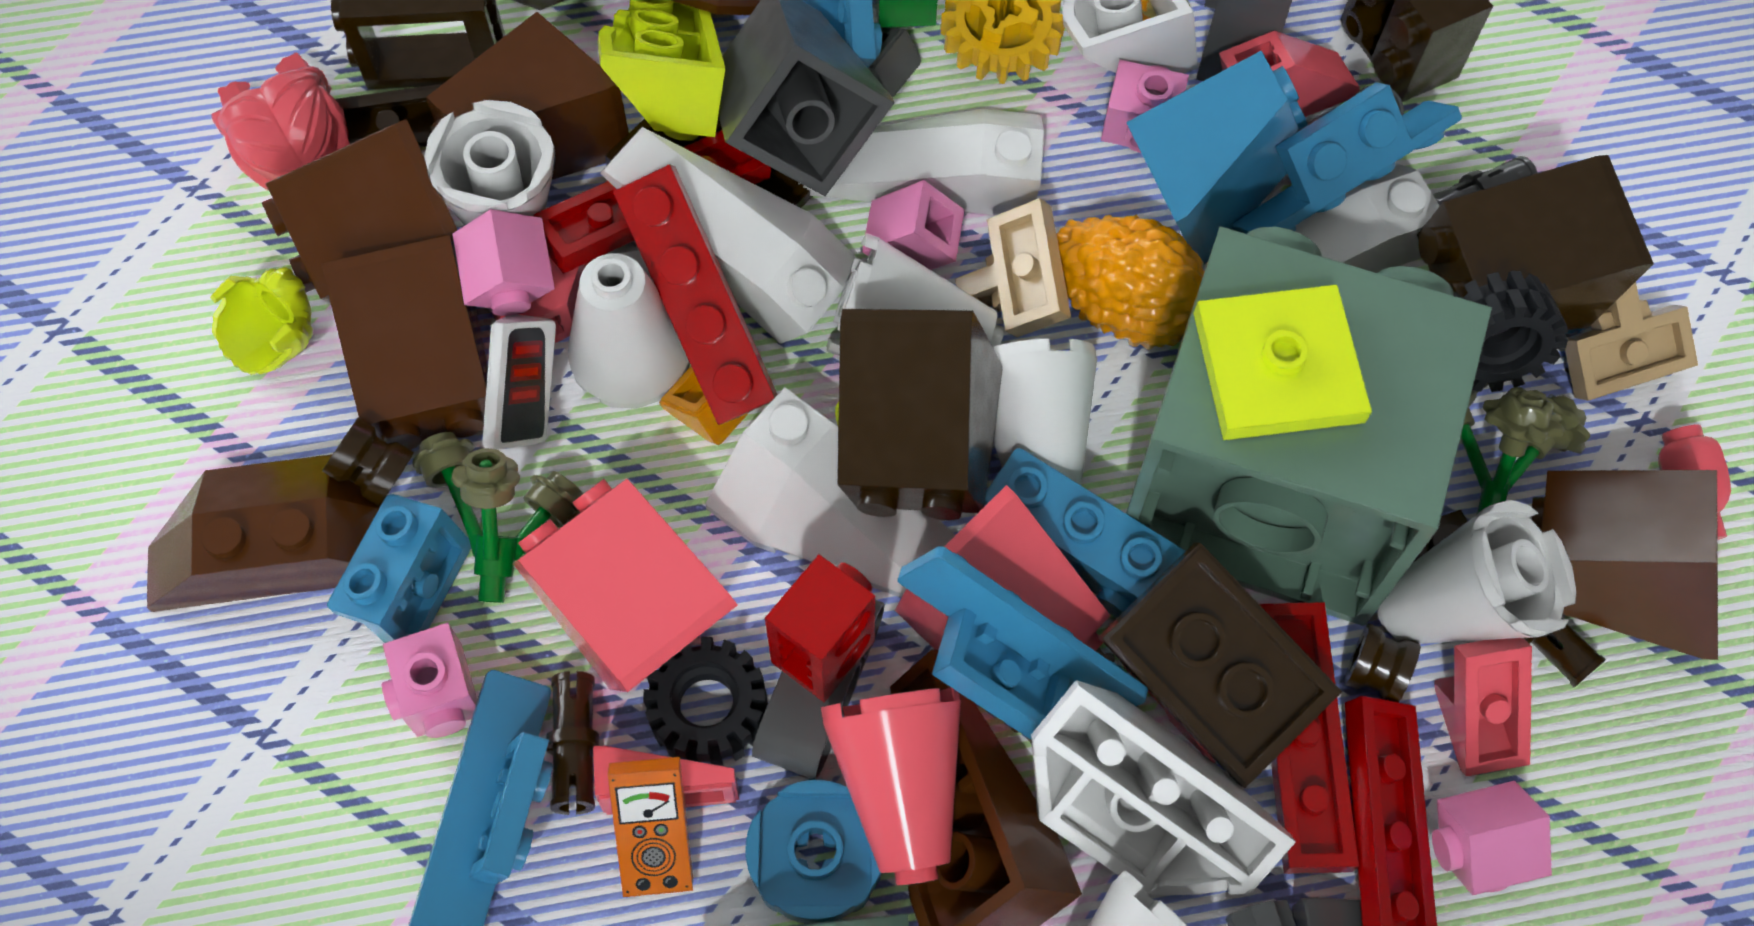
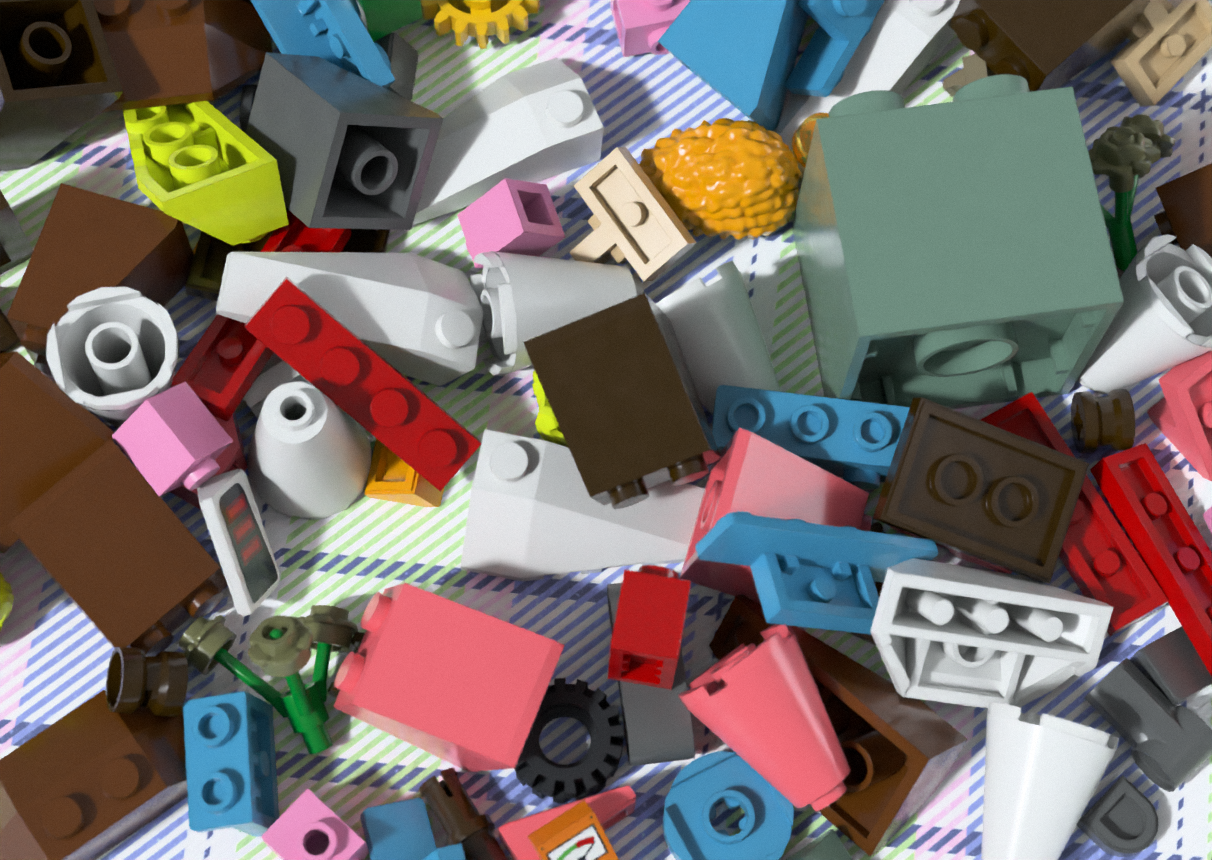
camera: 30 degrees left, 5 degrees up
(1281, 362) = (931, 219): neon yellow plate -> none
(1534, 330) = (1088, 67): black tyre -> none

